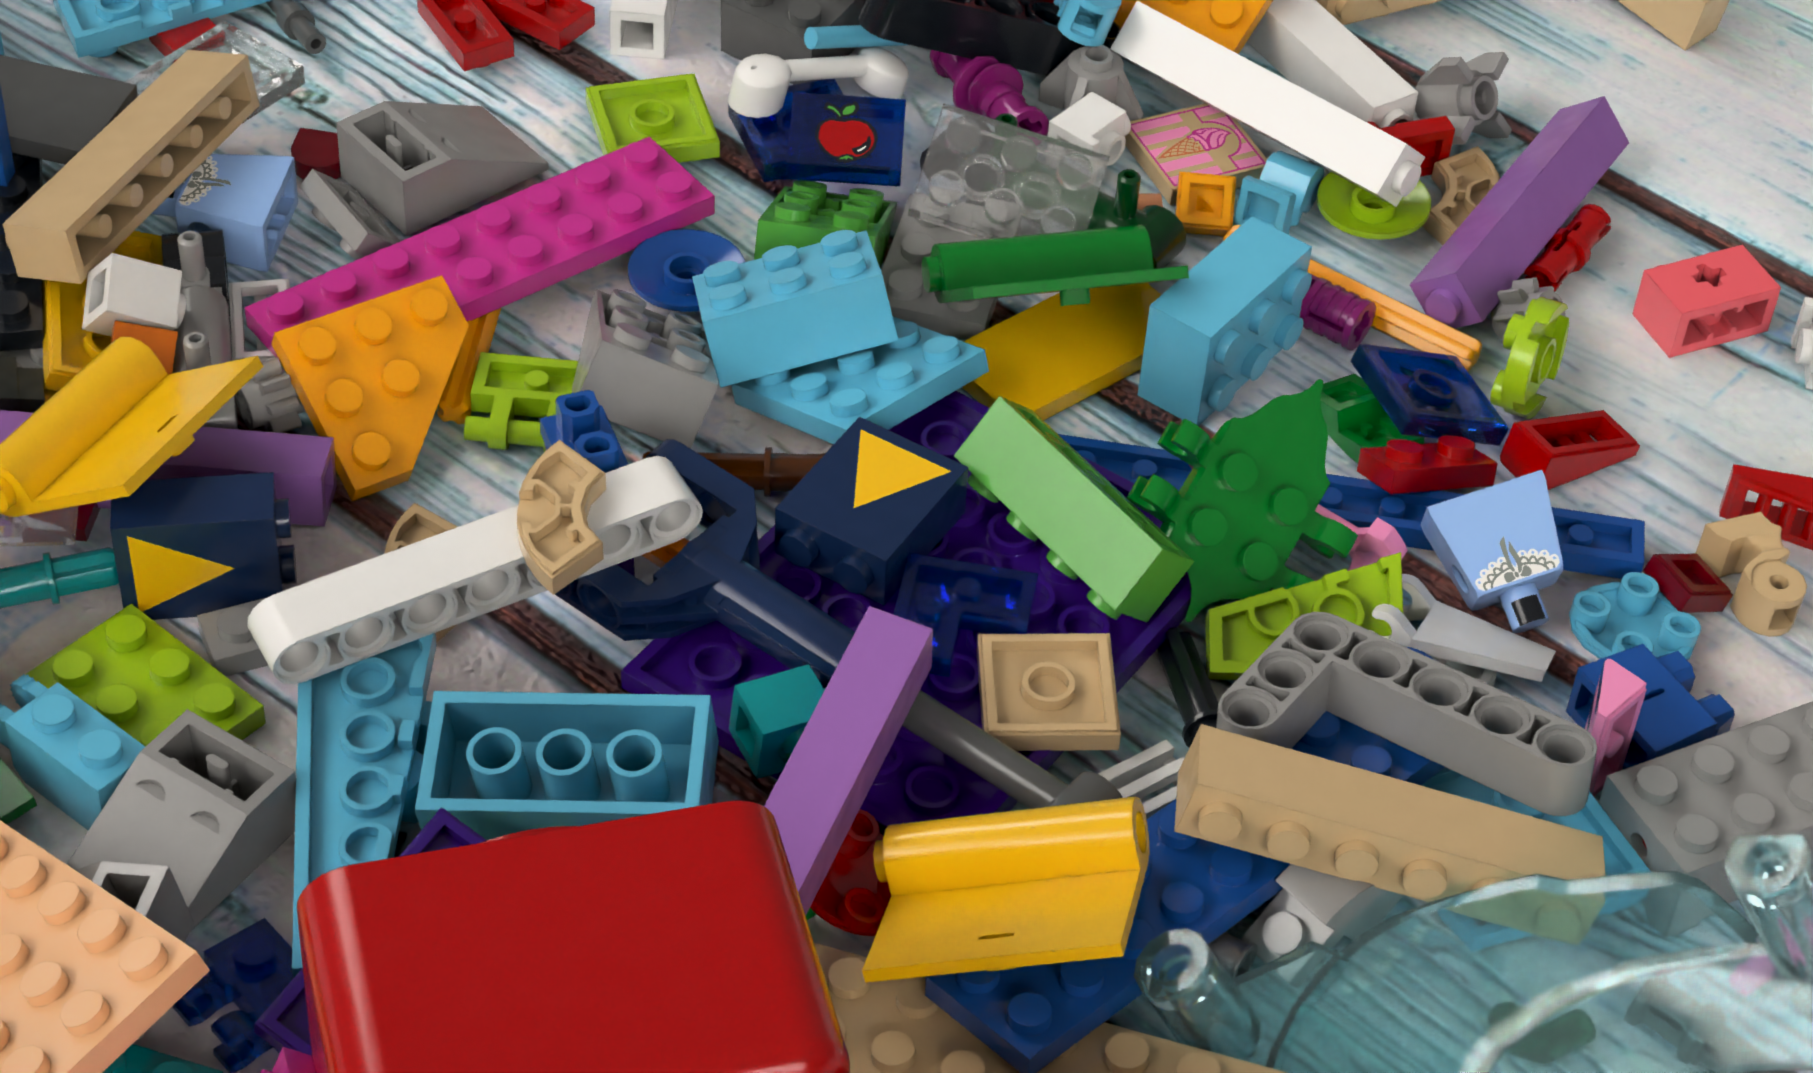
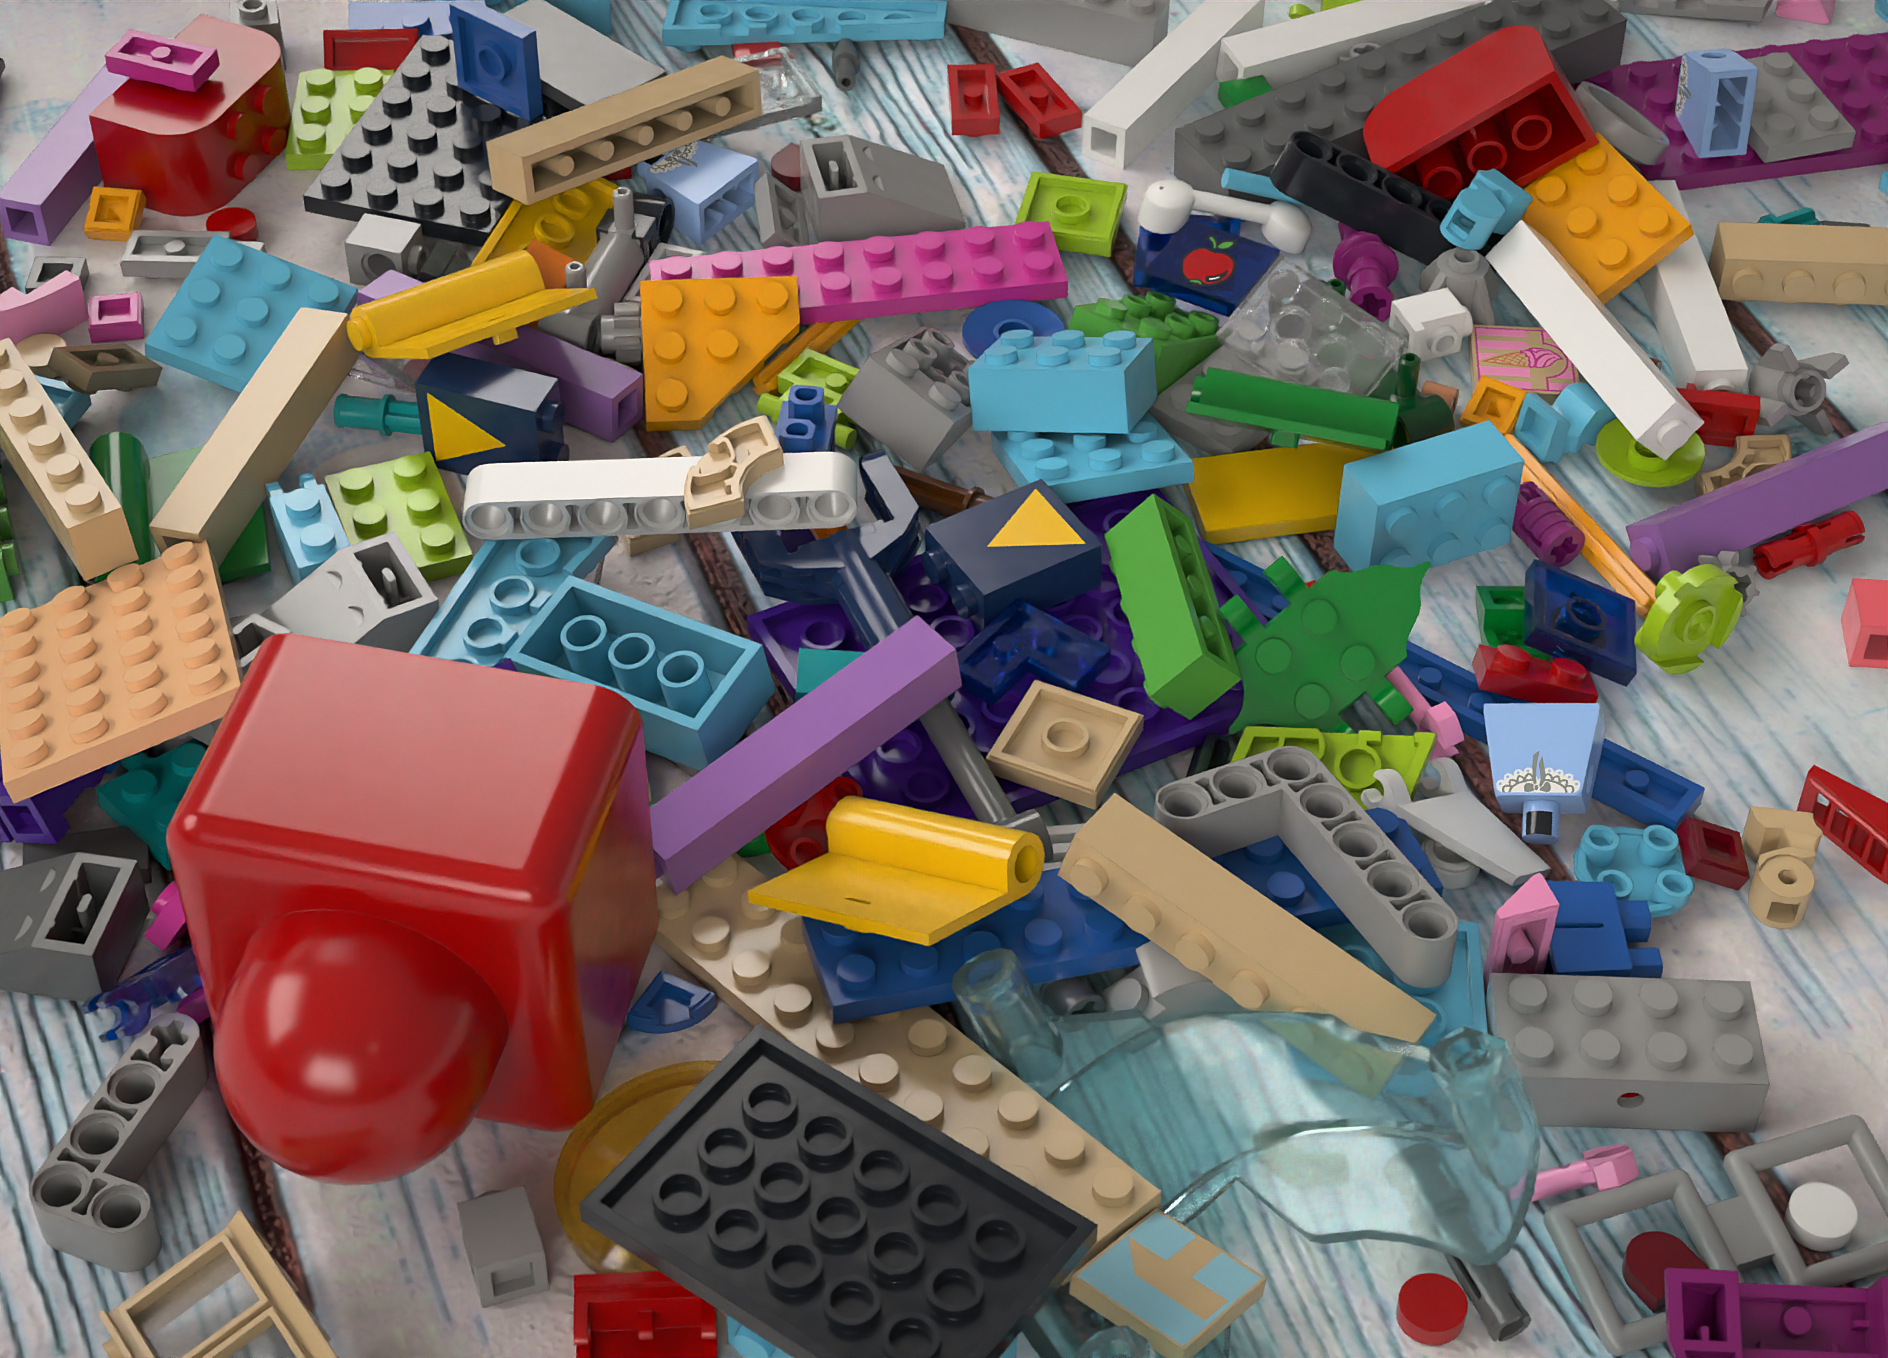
camera: 30 degrees right, 0 degrees up
(132, 293) = (561, 225): white brick -> none
(1564, 446) = (1668, 703): red slope -> none

